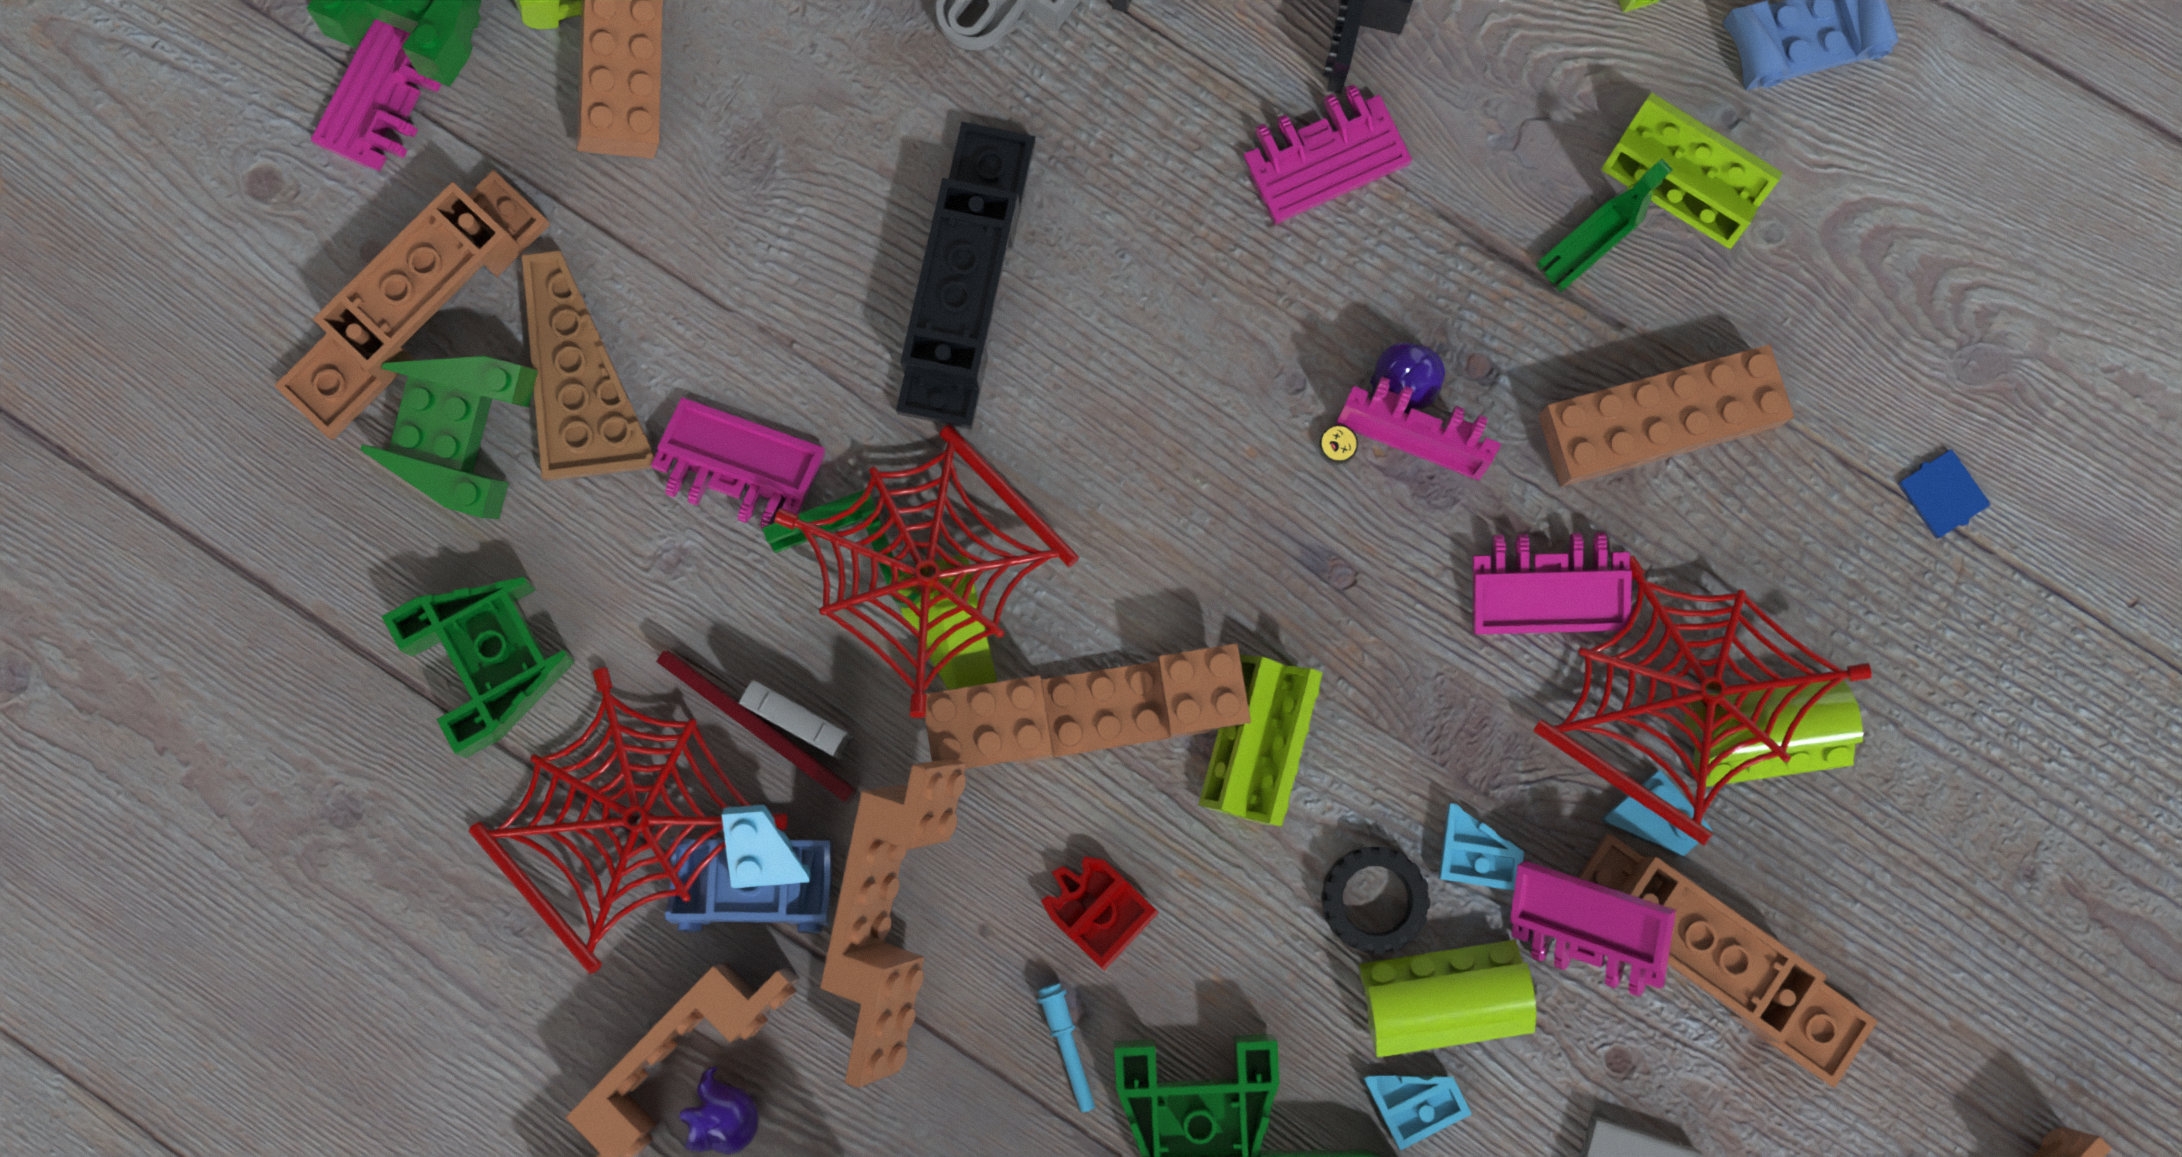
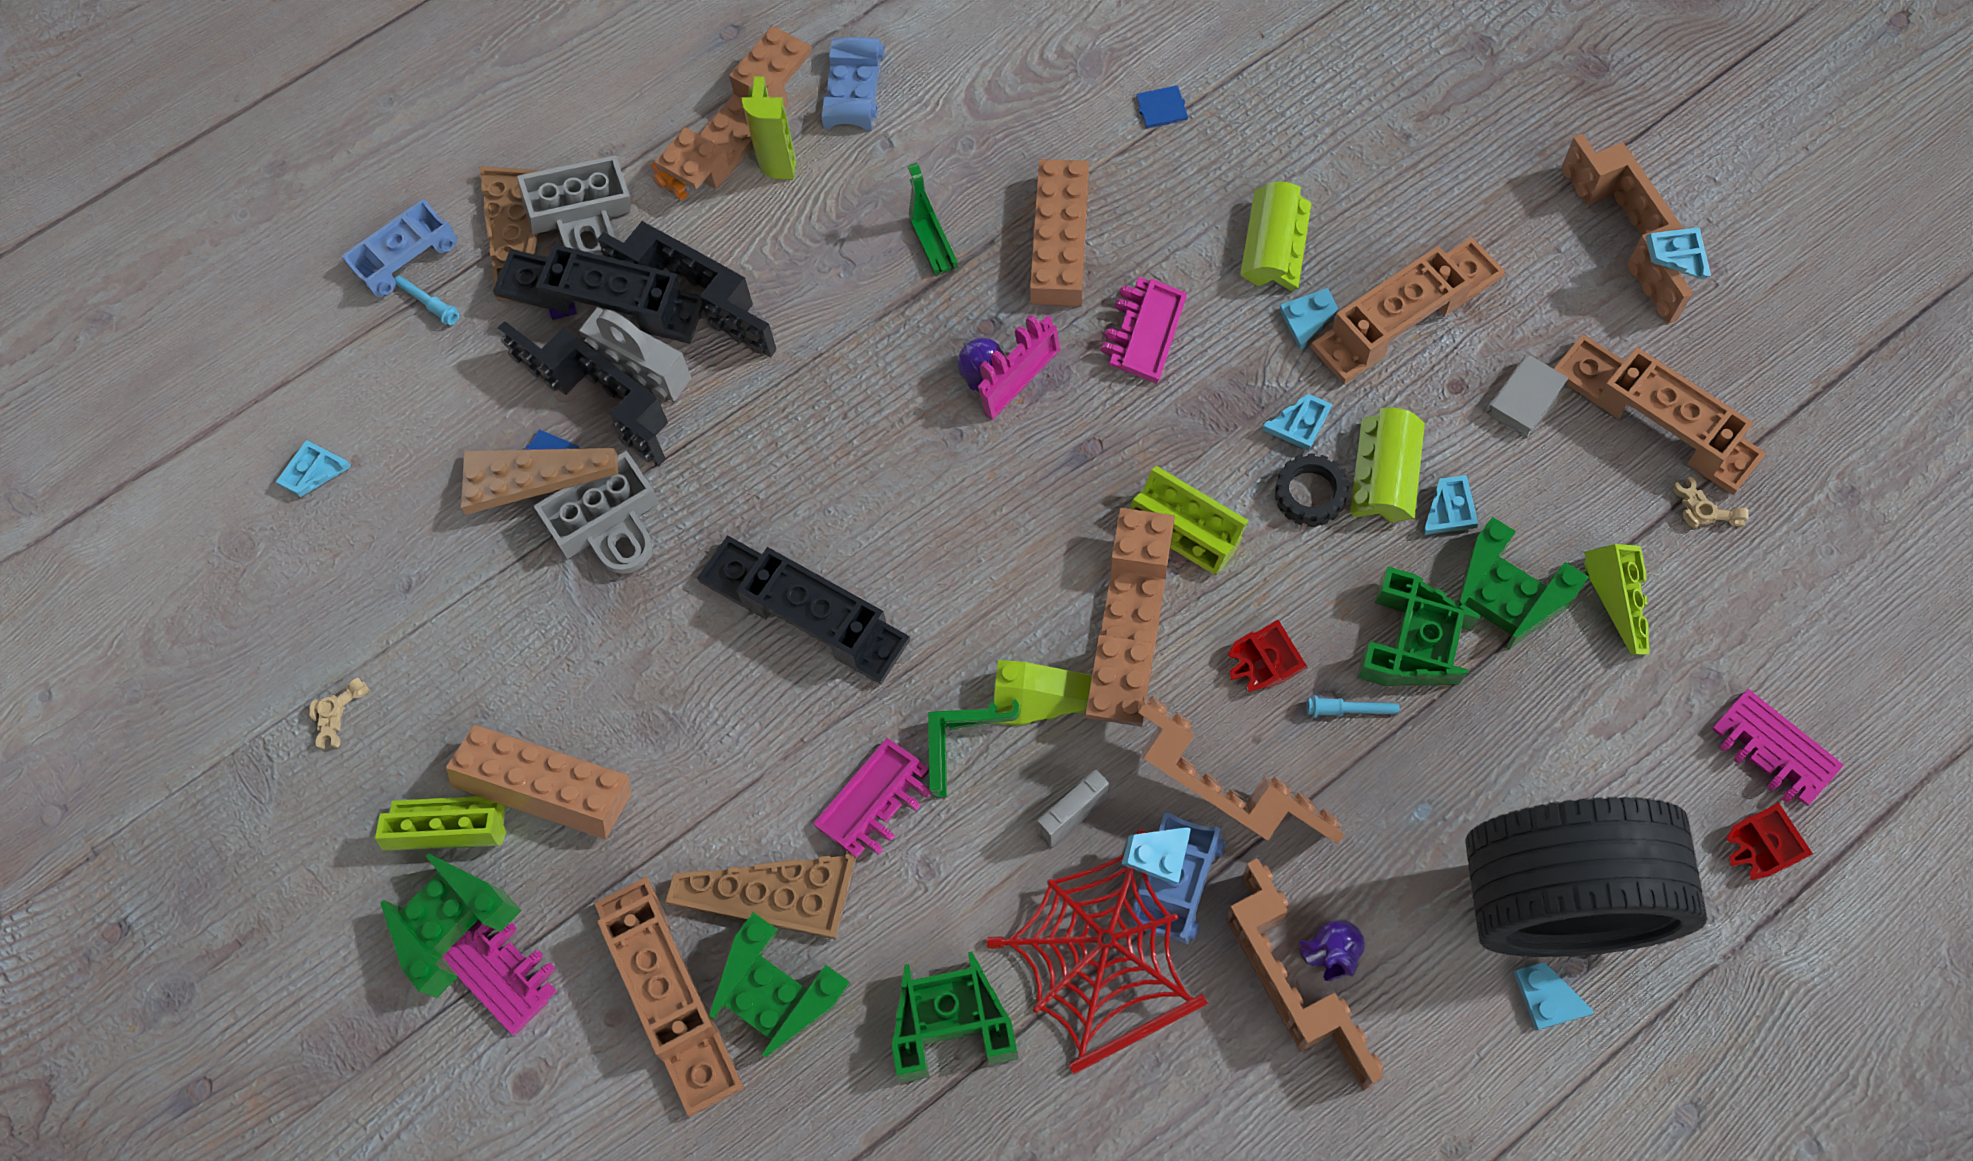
camera: 65 degrees left, 15 degrees down
(757, 726) = (1066, 842): dark red tile -> none
(927, 571) = (1003, 683): red animal -> none
(1326, 162) = (818, 371): dark pink hinge -> none
(1338, 444) = (1007, 420): light yellow tile -> none
(1592, 924) = (1367, 361): dark pink hinge -> none
(1656, 804) = (1243, 260): red animal -> none
(1712, 178) = (888, 176): lime brick -> none

